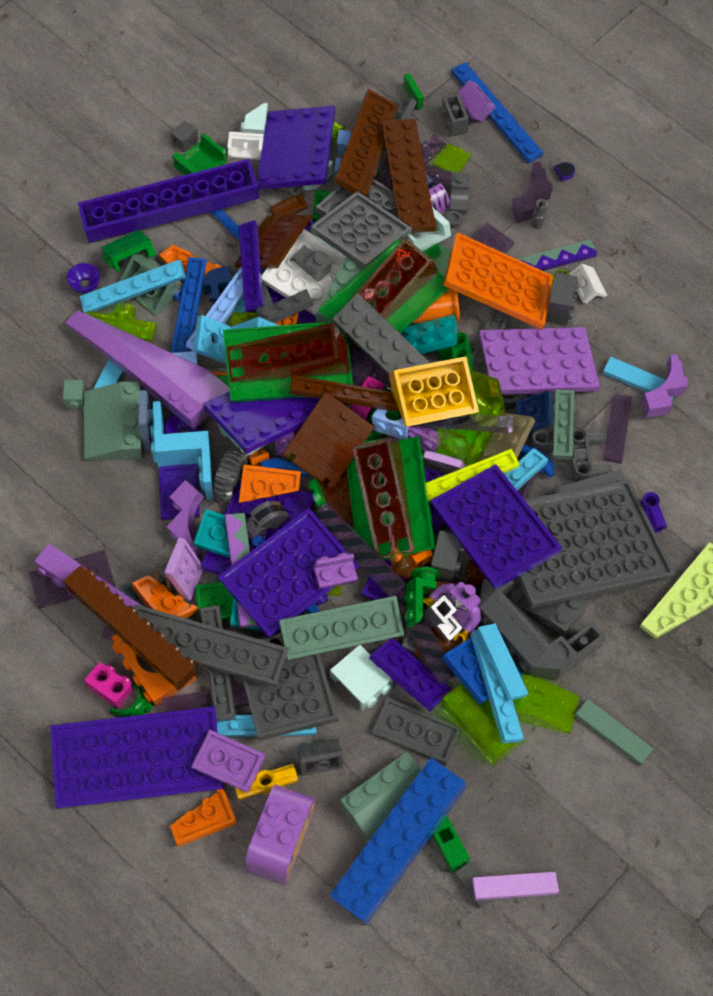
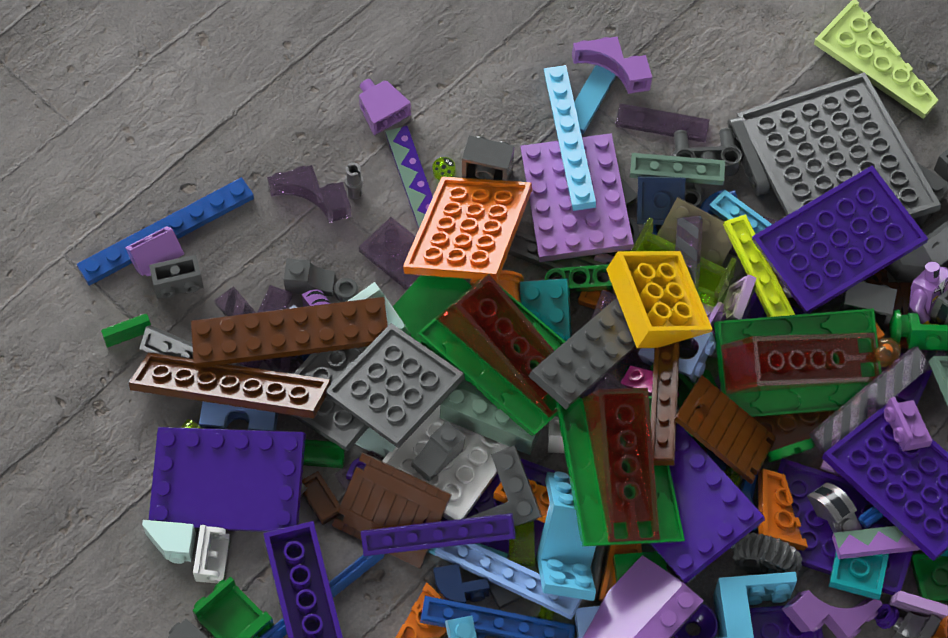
camera: 90 degrees left, 0 degrees up
(452, 159) = (248, 284): clear neon green piece -> none
(565, 170) = (272, 154): black tile -> none
(589, 283) = (451, 139): white panel -> none
(590, 354) = (569, 138): none -> medium azure plate
(612, 235) = (382, 105): none -> medium lavender torso
(653, 512) = (773, 91): dark purple piece -> none

